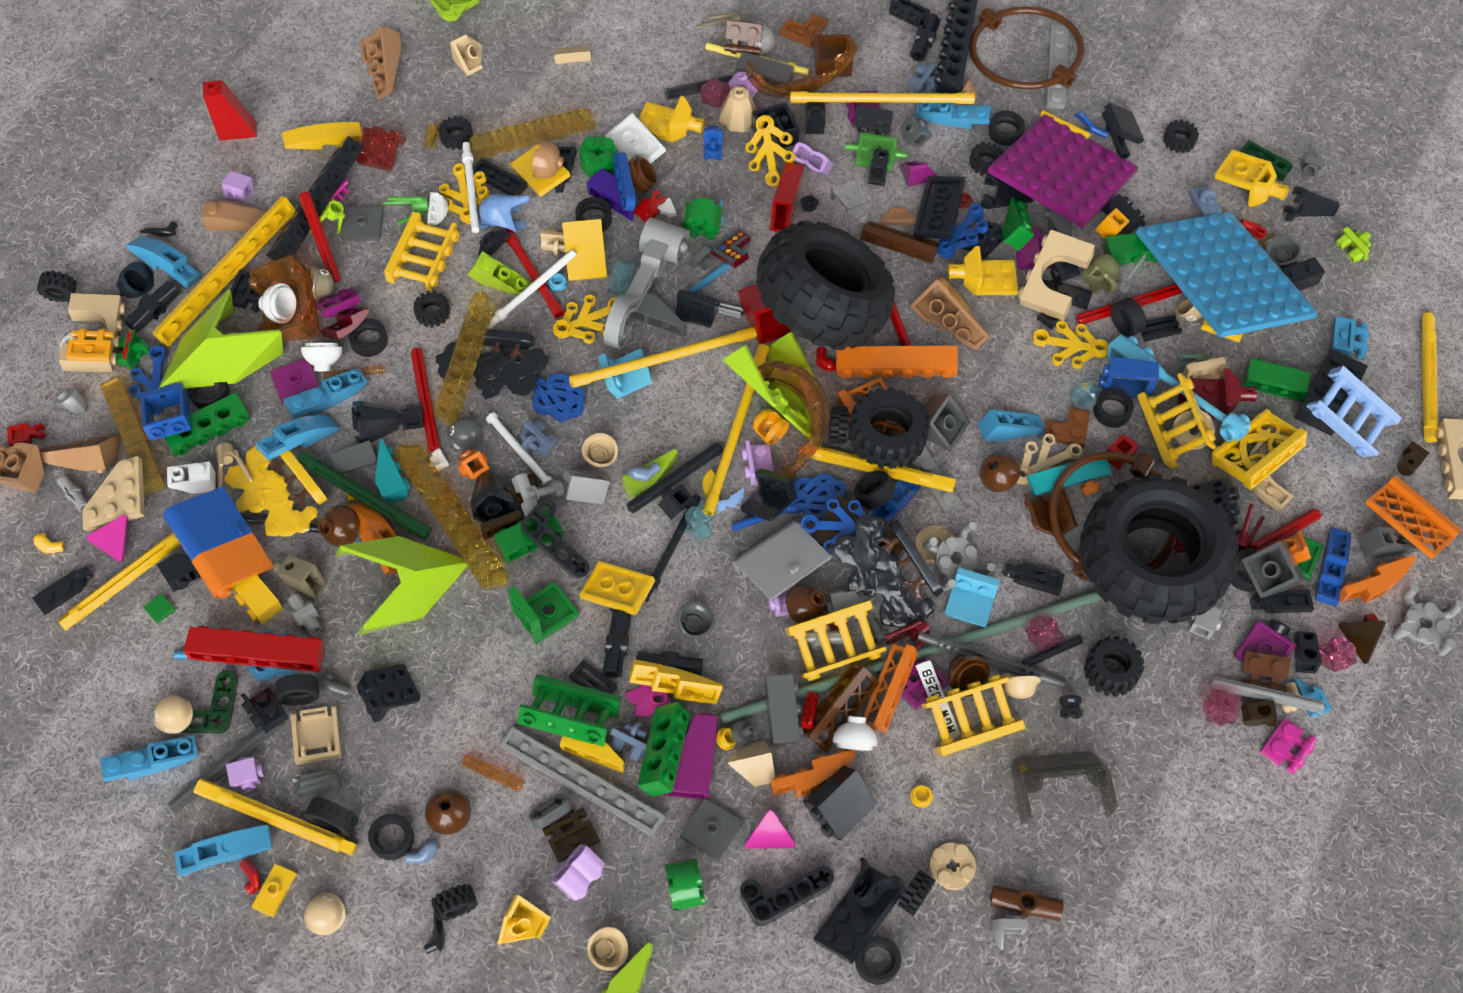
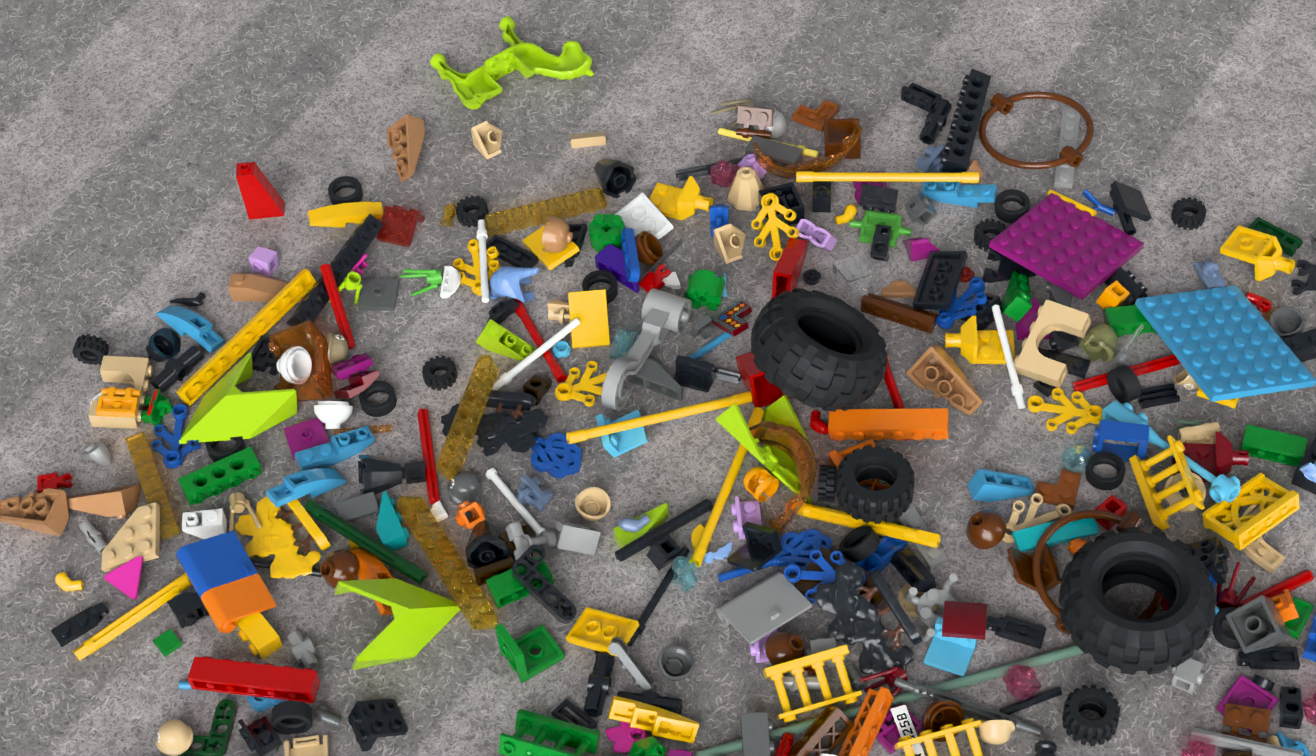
camera: 10 degrees right, 10 degrees down
(153, 401) = (174, 453): blue window -> none
(295, 571) = (301, 615): dark tan torso -> none
(320, 100) = (345, 182): none -> black tyre
(409, 240) = (421, 310): yellow fence -> none
(534, 323) = (537, 386): none -> dark brown leg
(602, 95) = (614, 176): none -> black cone
(649, 623) = (630, 663): none -> plate
(723, 167) = (729, 242): none -> tan slope
(842, 138) = (849, 214): none -> yellow arm
(930, 517) = (913, 570): none -> black piece
(946, 421) = (933, 481): dark grey slope -> none
(985, 570) = (964, 620): none -> dark red slope
(1021, 321) = (1016, 389): none -> white bar

